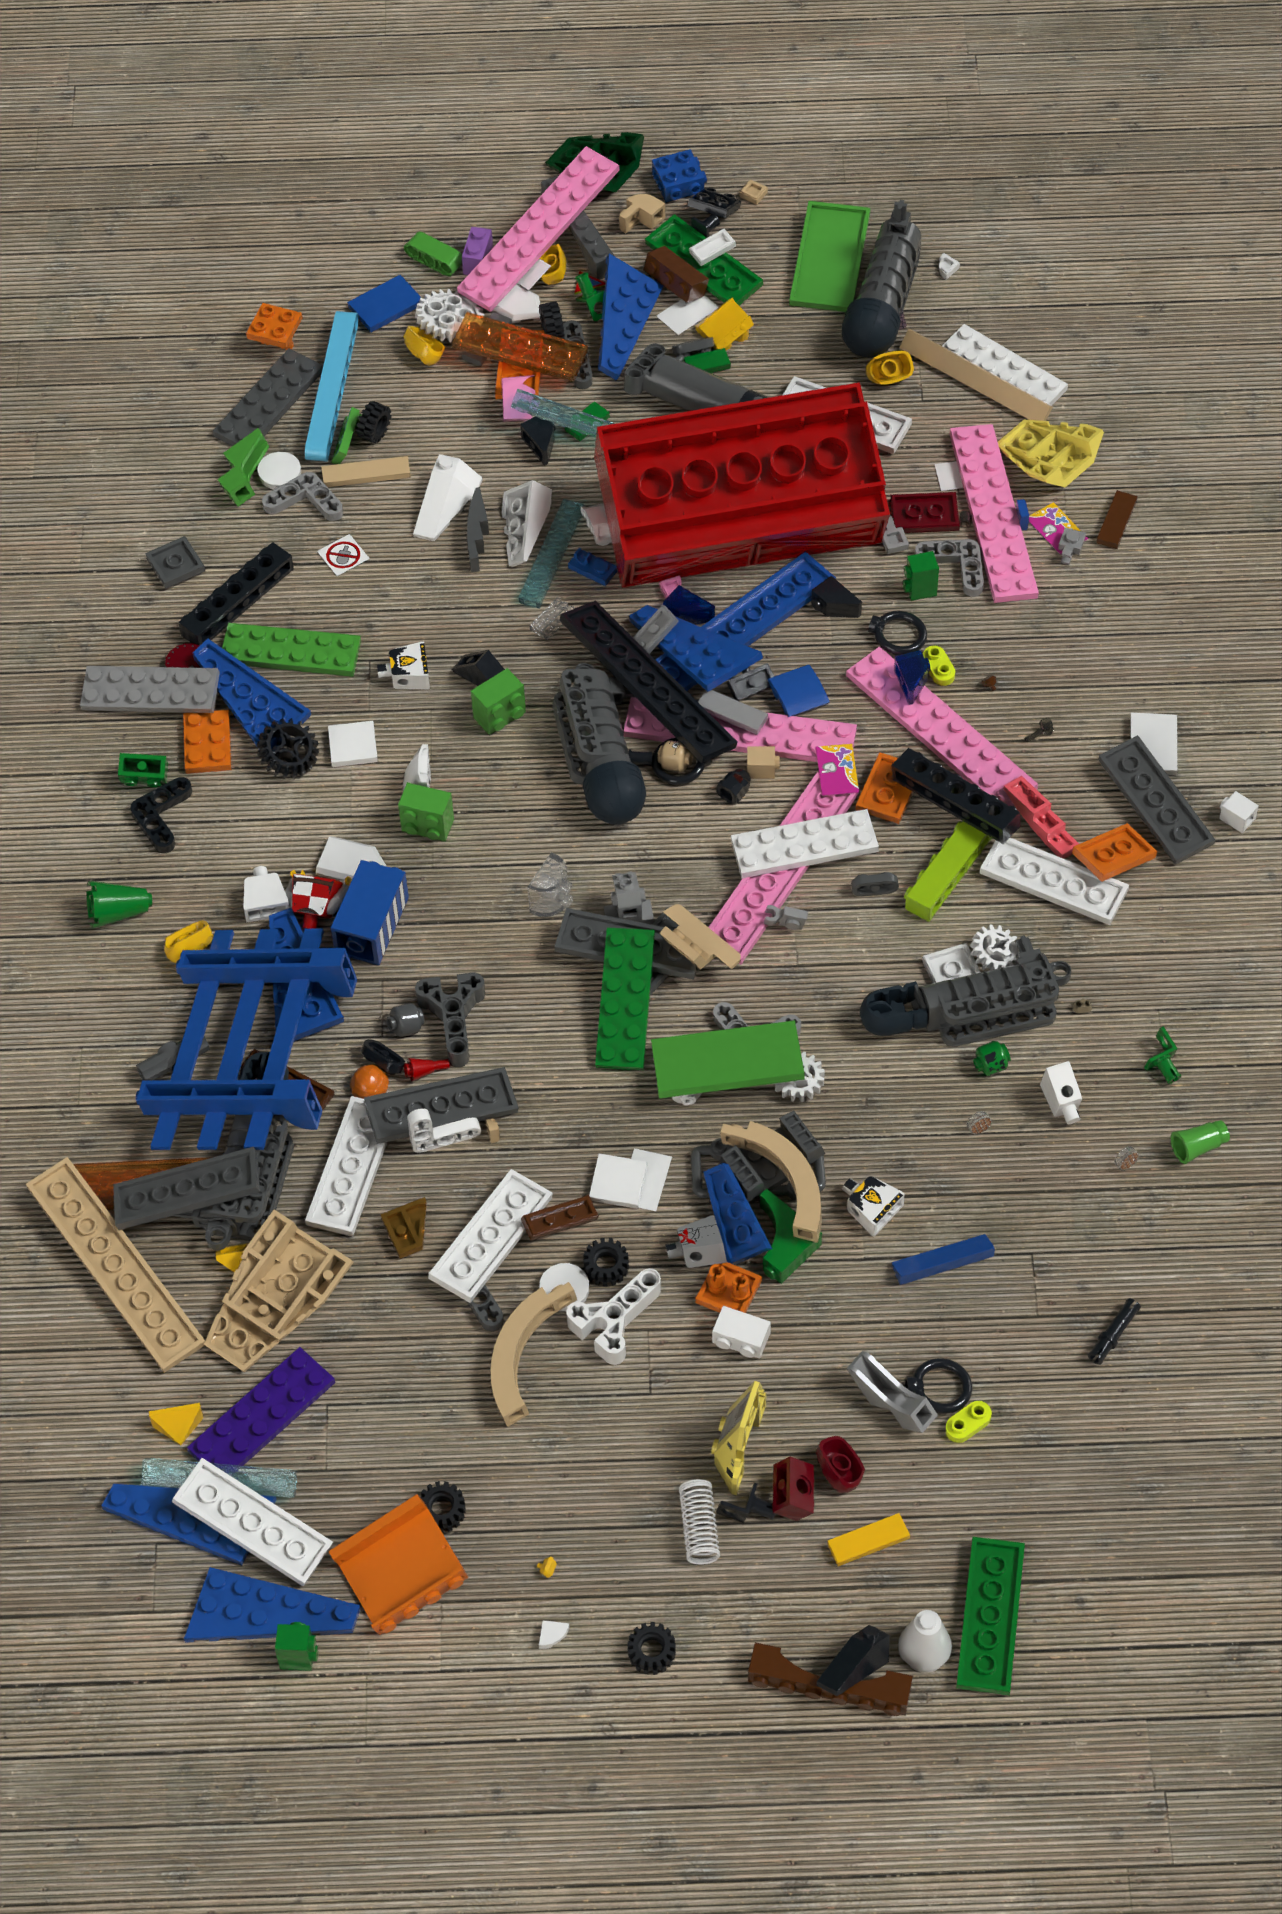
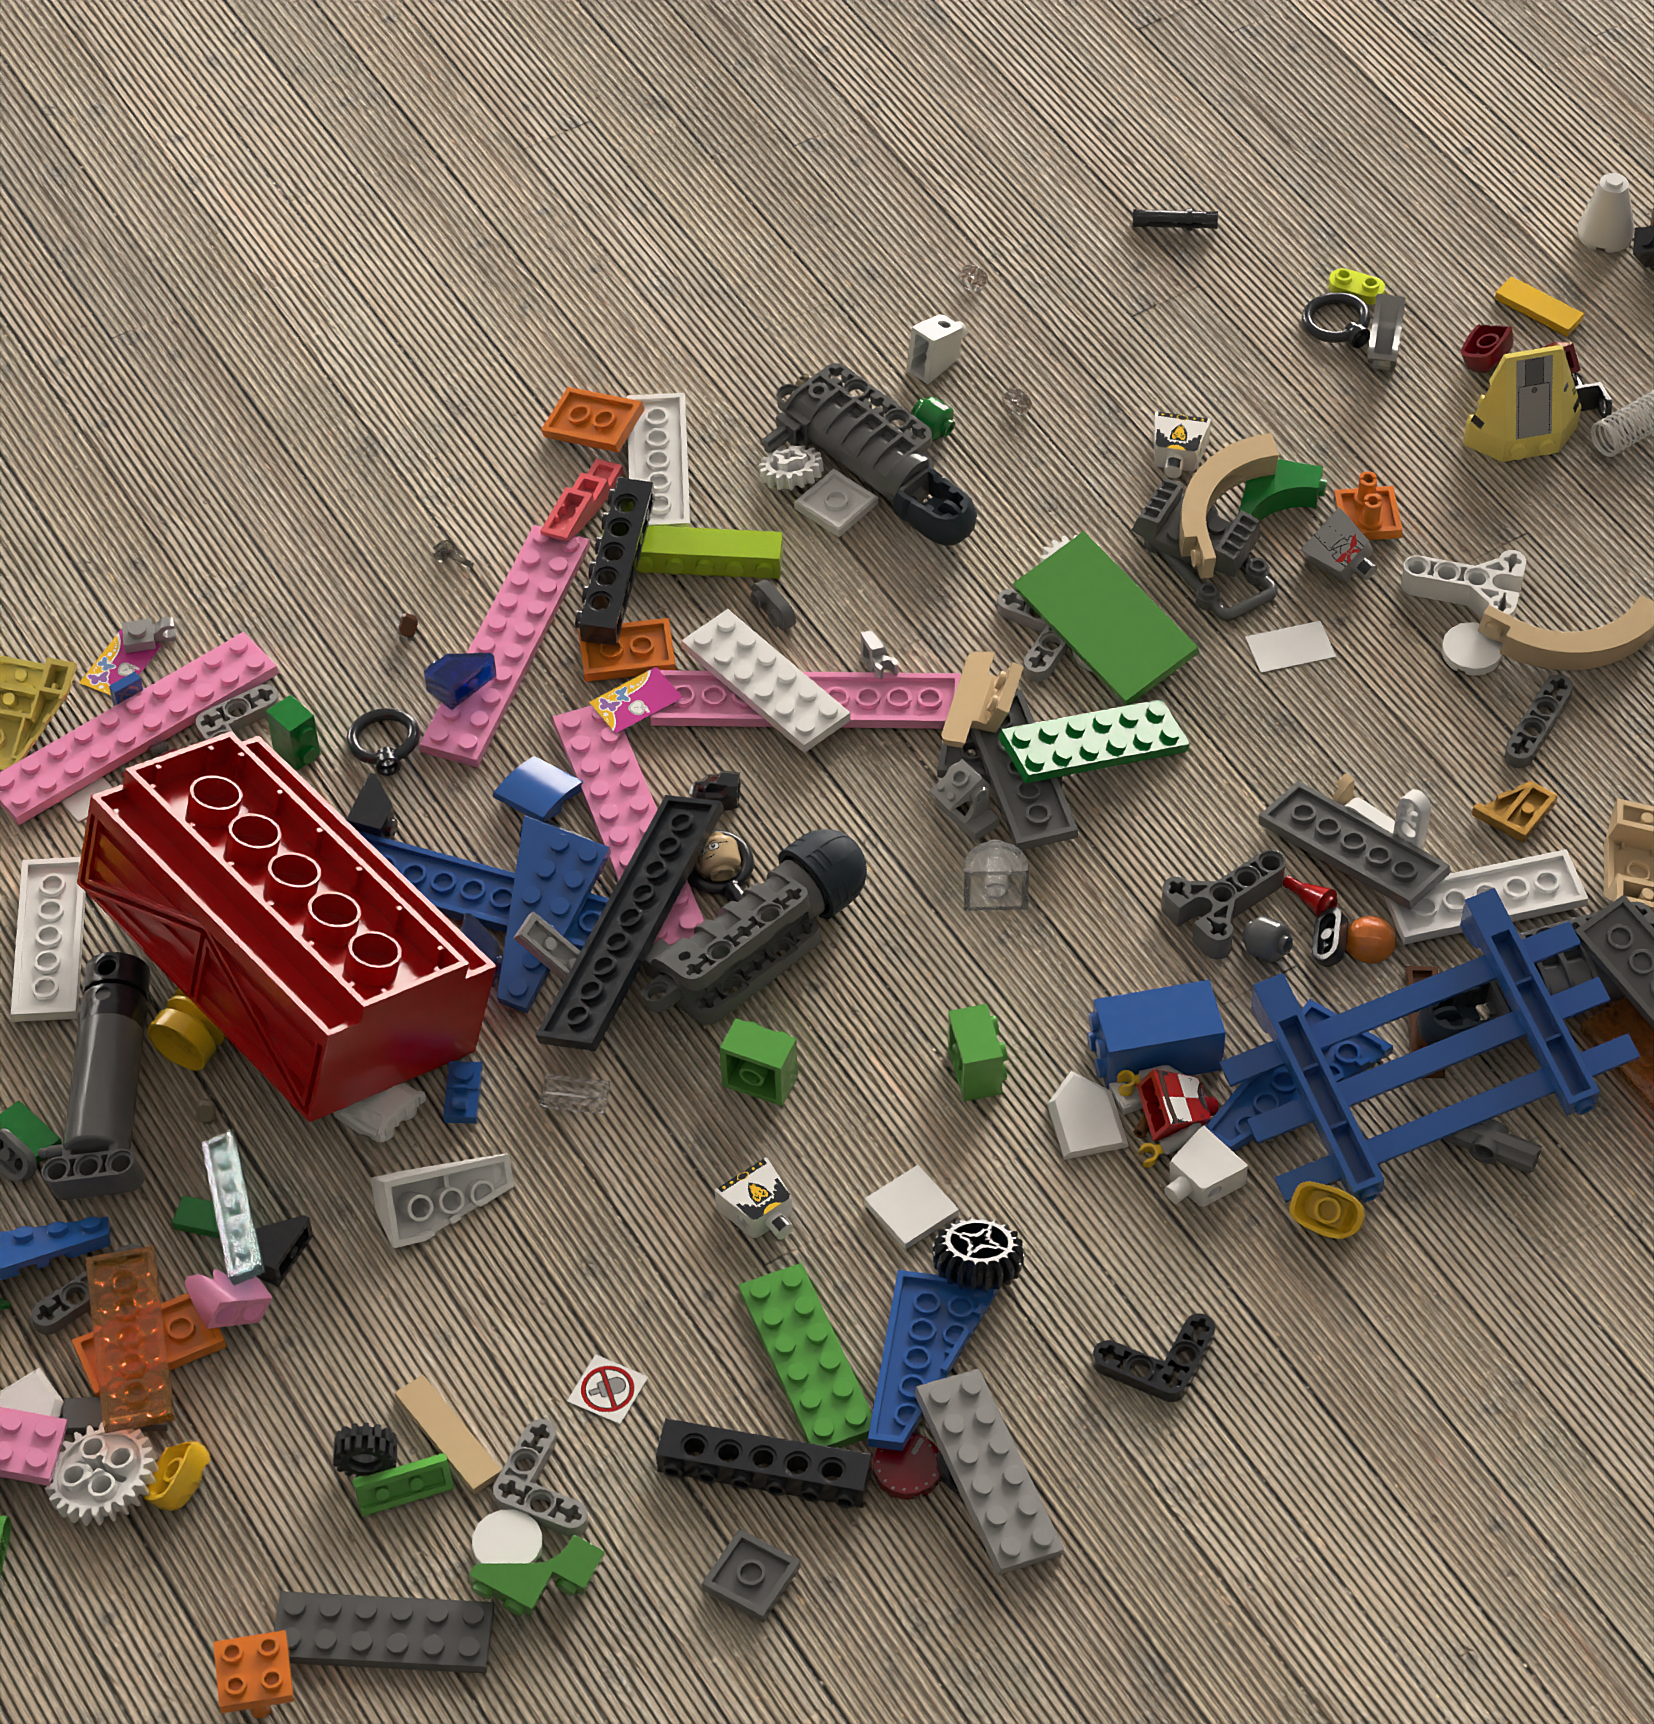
camera: 120 degrees left, 5 degrees down
(115, 902) = (1338, 1317): green cone -> none
(143, 769) = (1119, 1400): green brick -> none
(207, 742) = (1022, 1367): orange plate -> none
(331, 386) = (313, 1557): medium azure beam -> none
(385, 303) = (110, 1581): blue tile -> none
(419, 770) = (928, 1090): white slope -> none
(447, 492) = (438, 1314): white wedge -> none
(476, 527) = (472, 1247): dark grey slope -> none
(478, 667) = (711, 1125): black slope -> none
(489, 1236) = (1473, 724): white plate -> none
(551, 319) = (54, 1328): black tyre -> none
(551, 554) = (513, 1138): clear light blue plate -> none
(559, 1217) = (1402, 680): reddish brown tile -> none
(606, 1249) = (1415, 636): black tyre -> none
(618, 1181) = (1314, 661): white tile -> none
(733, 711) = (618, 826): light grey tile -> none
(734, 1216) = (1287, 528): blue wing -> none
(741, 1332) = (1412, 475): white brick -> none
(762, 762) = (669, 775): tan brick -> none
(938, 662) = (412, 681): neon yellow plate -> none
(943, 1259) = (1196, 370): blue slope -> none
(990, 1616) = (1532, 193): green plate -> none
(1117, 519) = (78, 609): reddish brown tile -> none
(1156, 799) = (493, 415): dark grey plate -> none
(1159, 736) = (408, 455): white tile -> none
(1163, 1060) = (829, 293): green bracket -> none
(1198, 1140) = (912, 231): bright green plant -> none
(1238, 811) = (464, 347): white brick -> none

